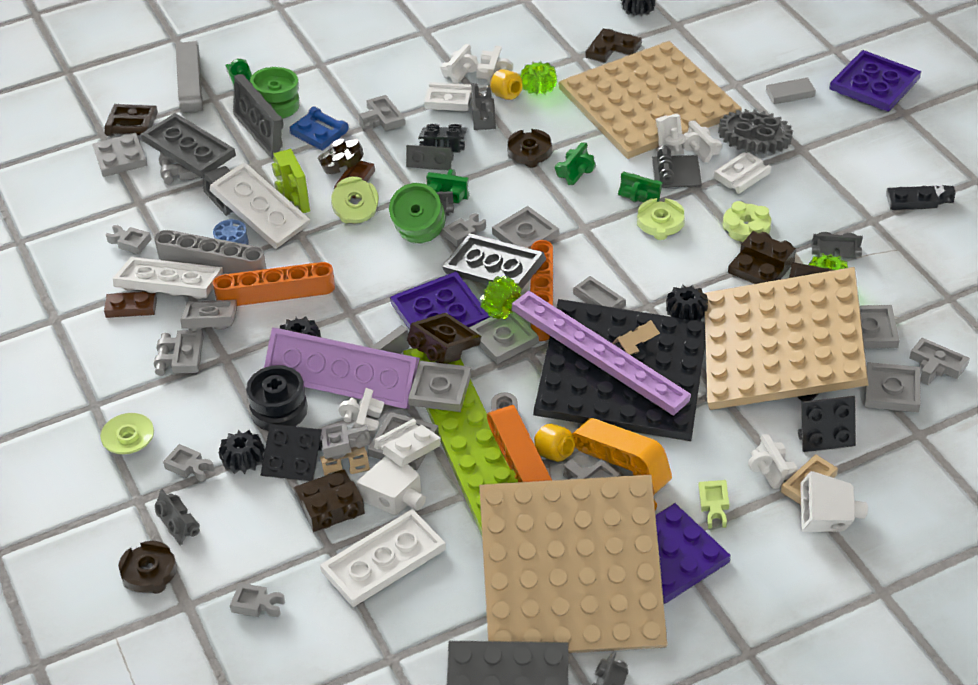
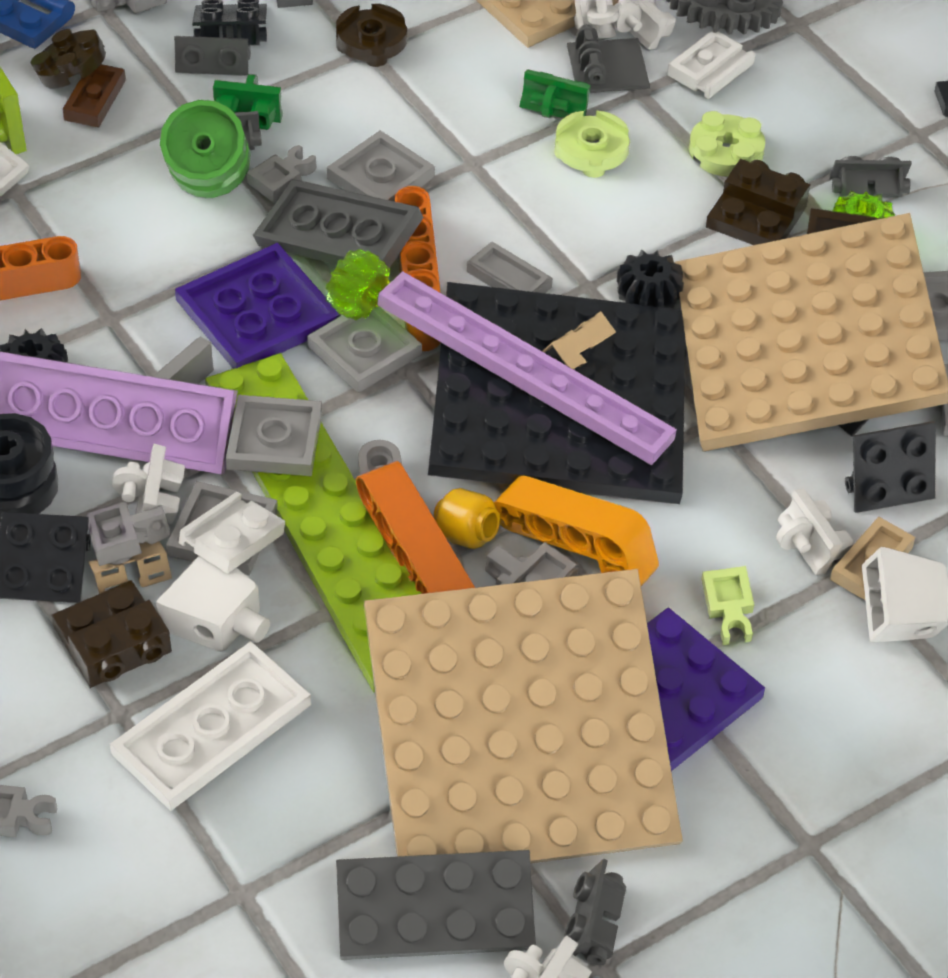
camera: 10 degrees left, 5 degrees up
(360, 189) = (108, 112): yellowish green plate -> none
(442, 338) = (269, 355): dark brown plate -> none
(576, 164) = (449, 59): green hips -> none

